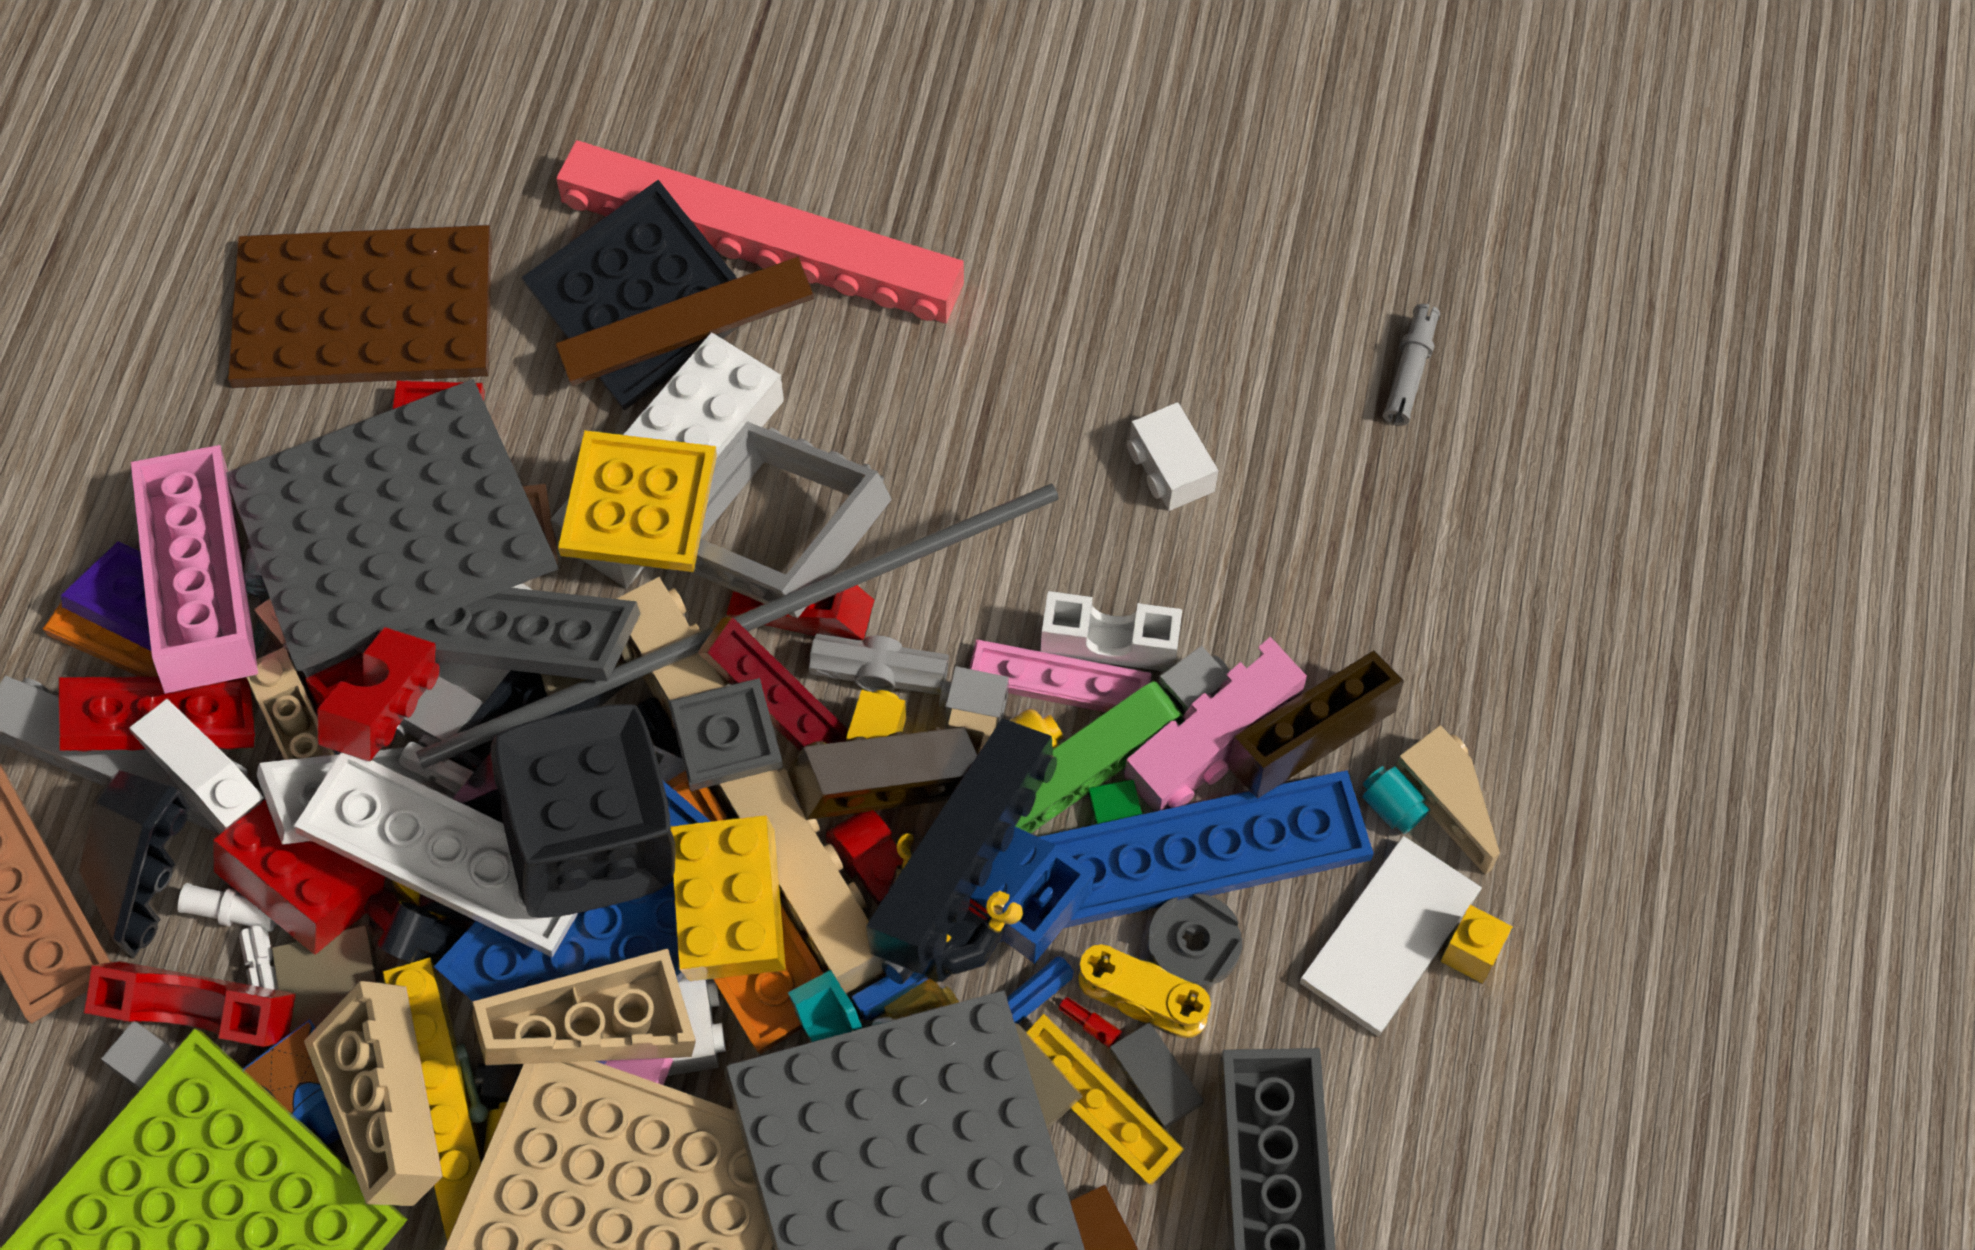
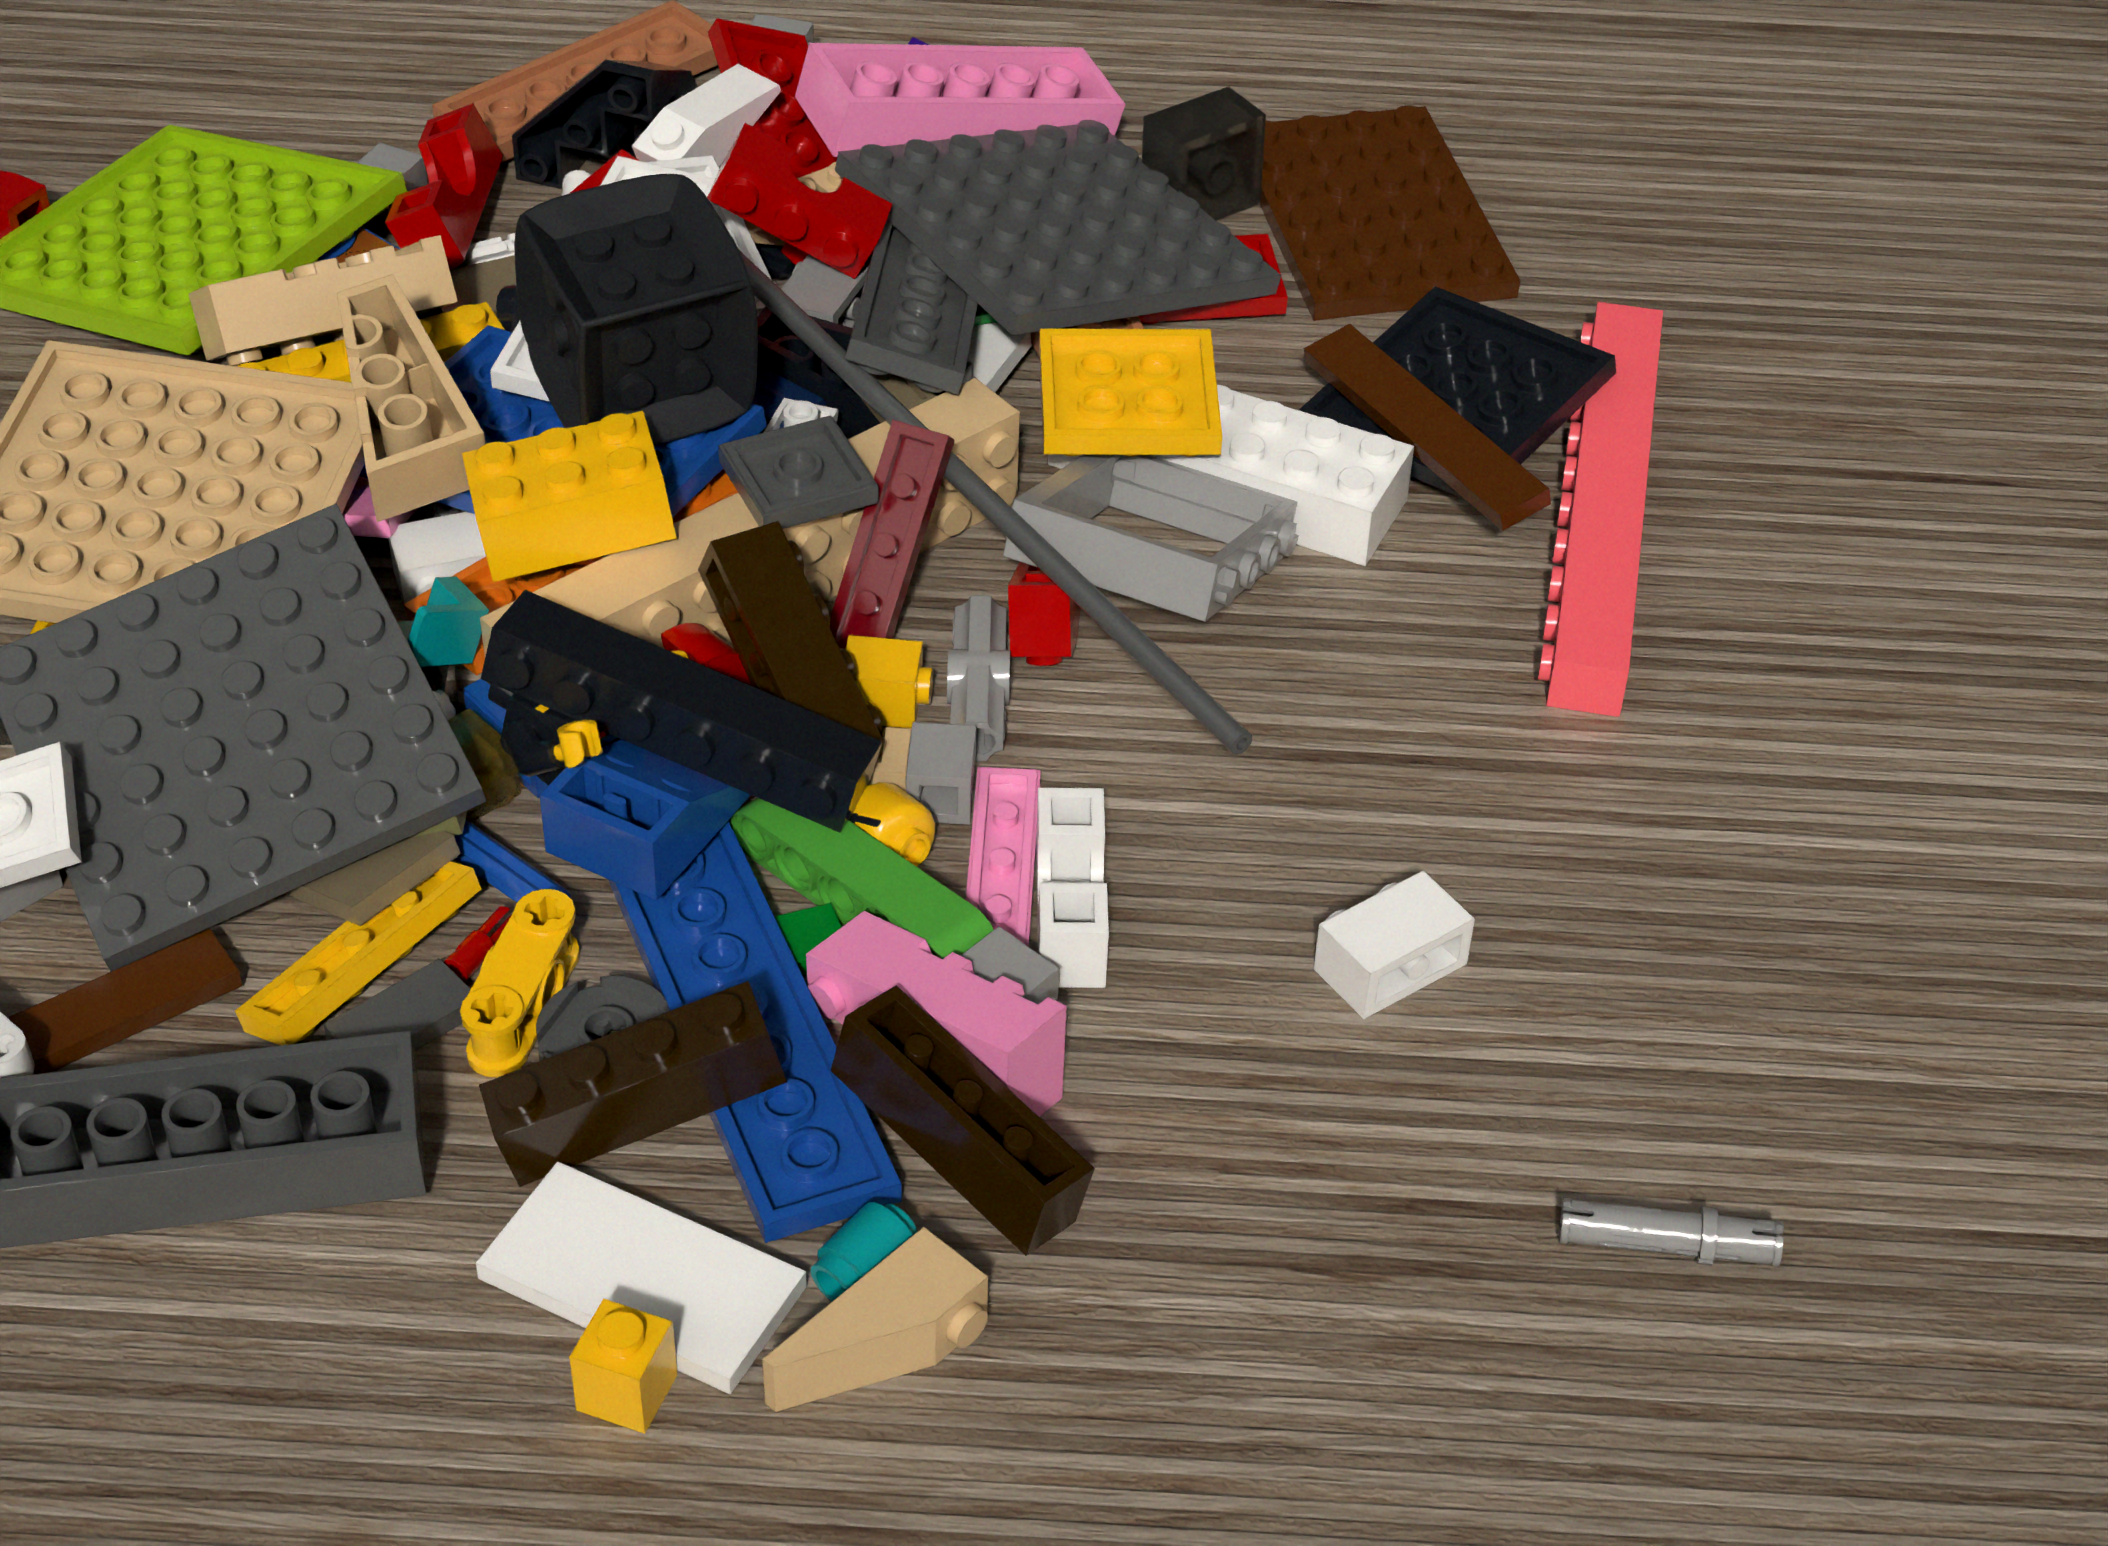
camera: 80 degrees right, 20 degrees down
(297, 396) = (1209, 150): none -> clear smoke brick
(1267, 916) = (632, 1083): none -> dark brown brick

